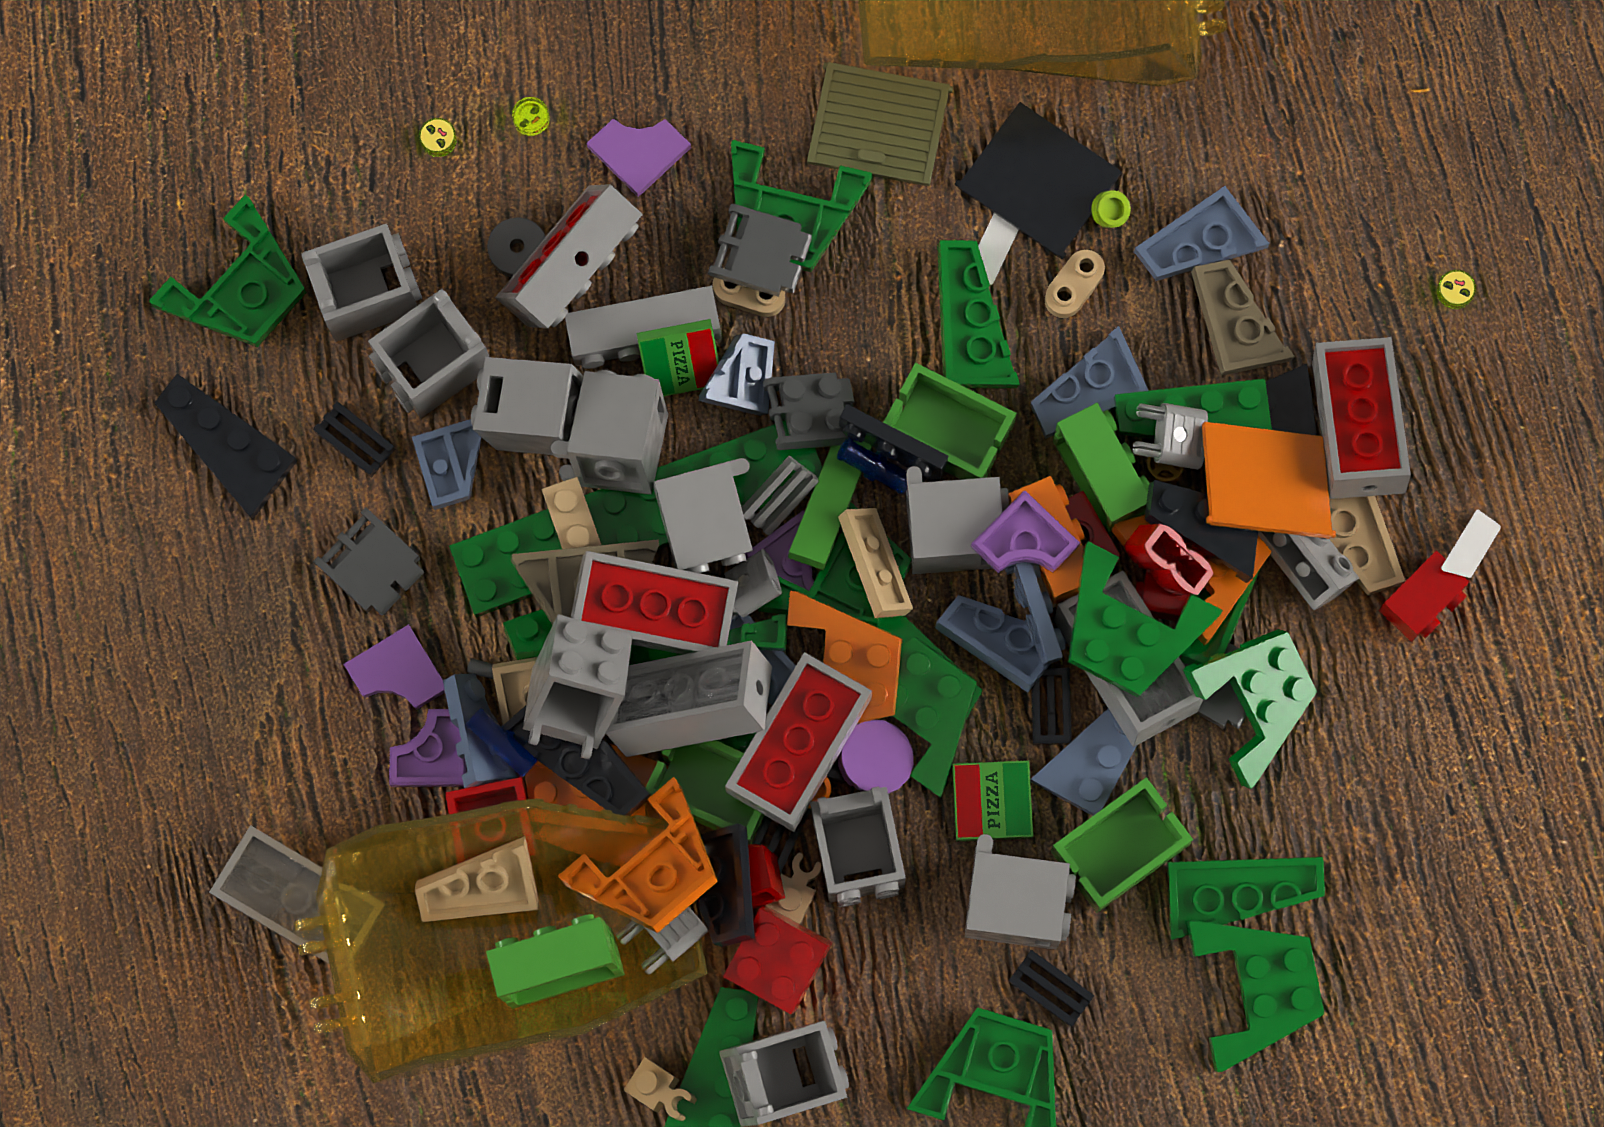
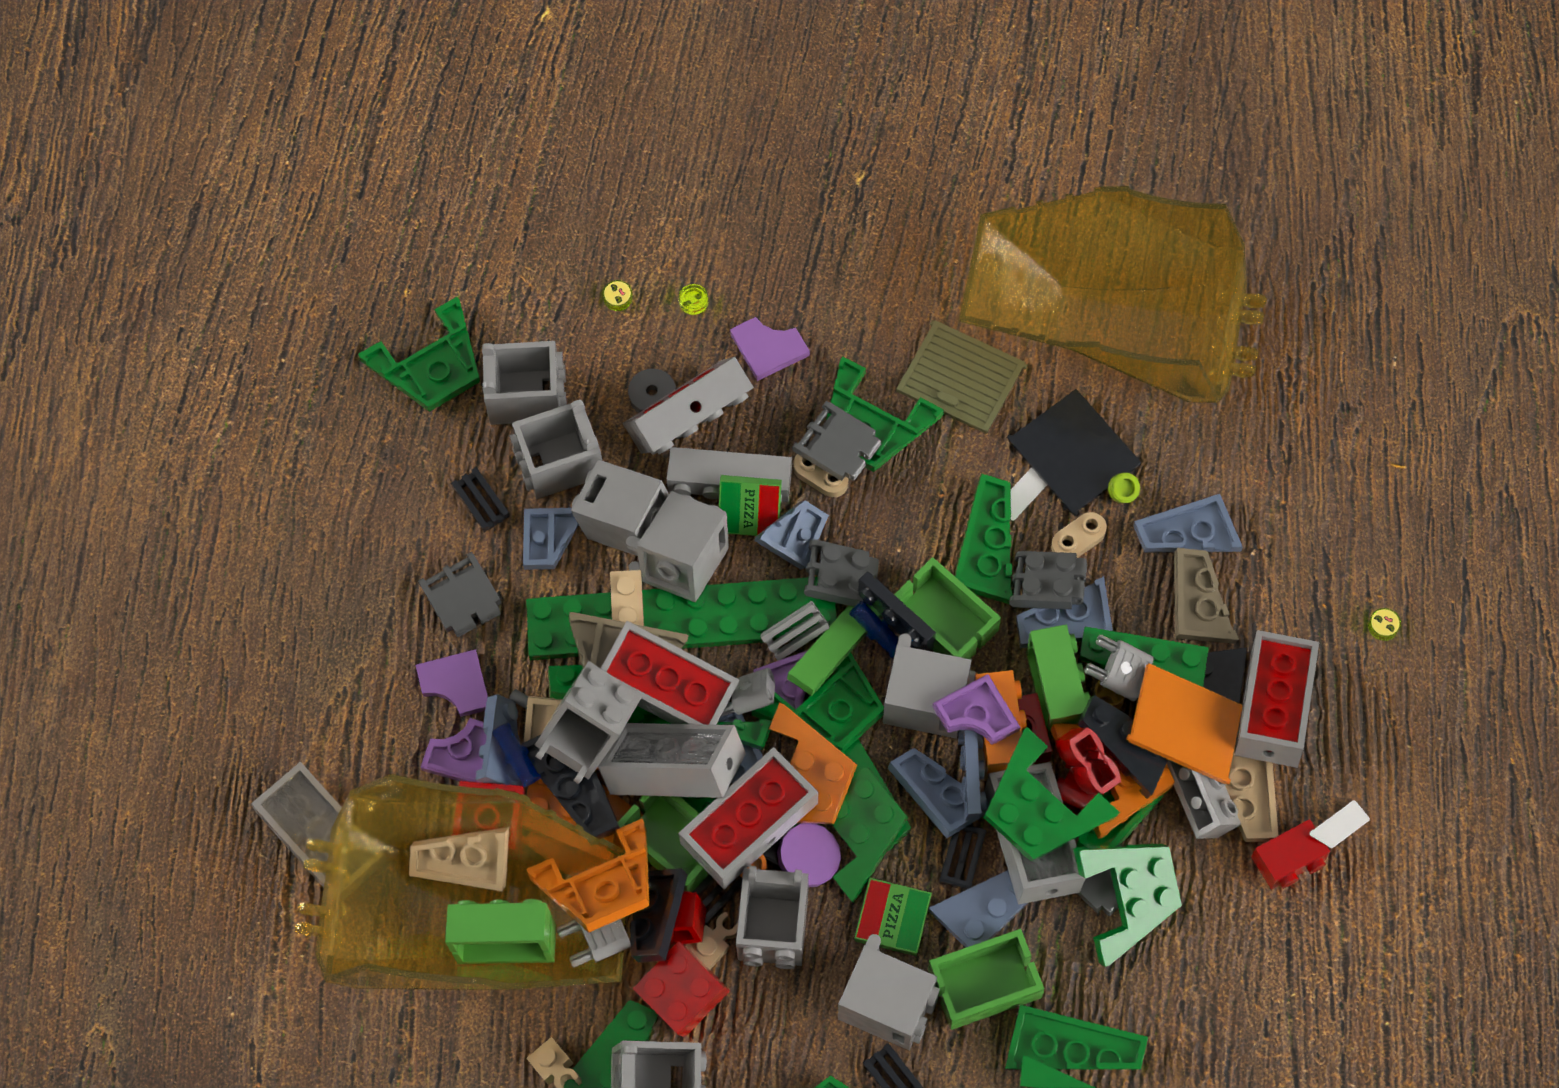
camera: 15 degrees right, 10 degrees down
(231, 448) = (385, 482): black wing -> none
(704, 516) = (730, 624): light grey container -> none
(875, 562) = (854, 701): tan plate -> none
(1058, 348) = (1049, 580): none -> dark grey plate

